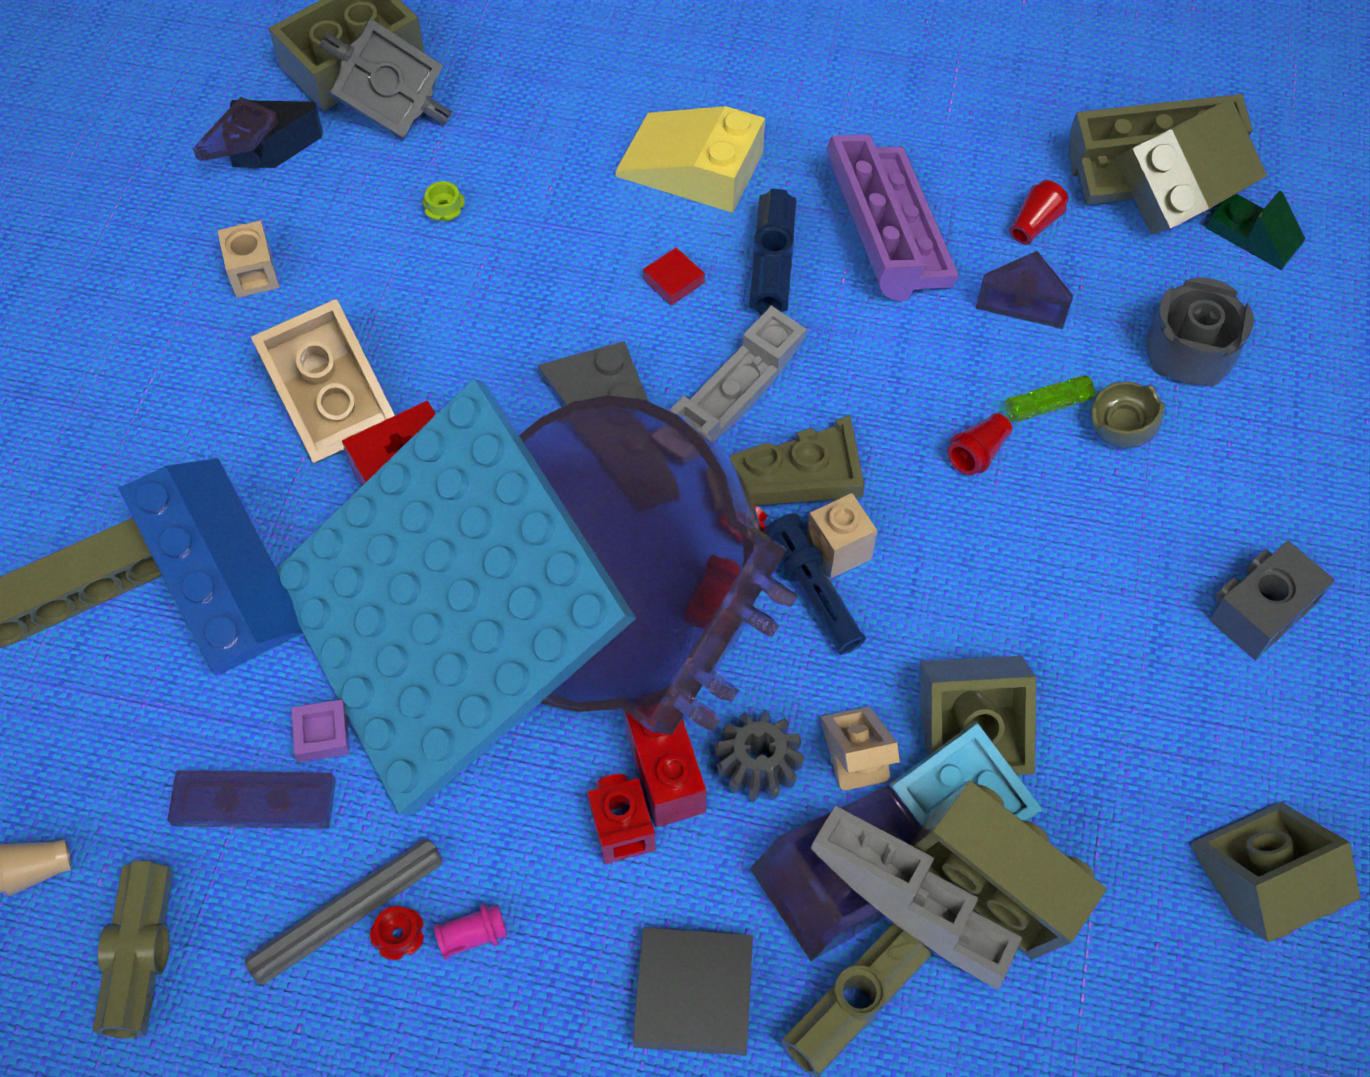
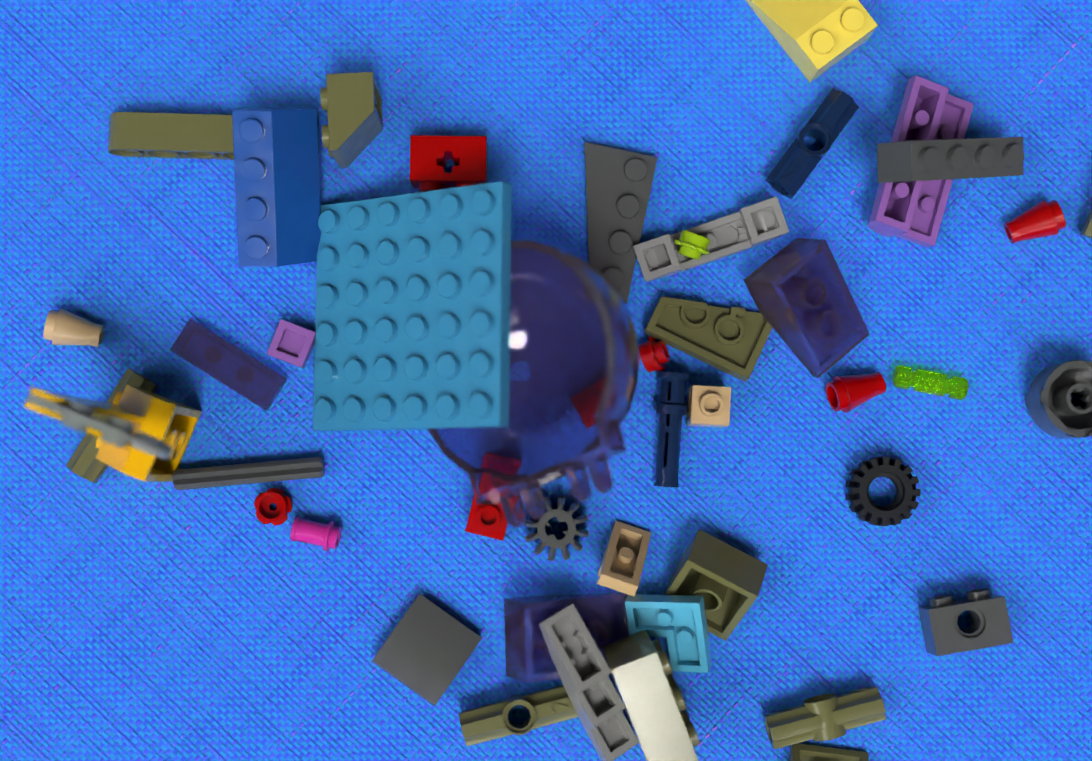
camera: 30 degrees right, 25 degrees up
(165, 889) = (142, 436): none -> yellow slope
(261, 452) = (353, 114): none -> olive slope
(322, 378) = (427, 70): tan slope -> none
(623, 834) = (443, 532): red brick -> none
(673, 276) = (728, 118): red tile -> none
(716, 392) = (692, 245): none -> lime plate
(873, 384) = (808, 303): none -> clear purple slope
(916, 180) = (949, 159): none -> dark grey brick
(1026, 291) = (976, 288): clear purple slope -> none
(1089, 499) = (905, 491): none -> black tyre
(1127, 414) = (973, 431): olive hair -> none
(1204, 786) = (824, 717): none -> olive piece

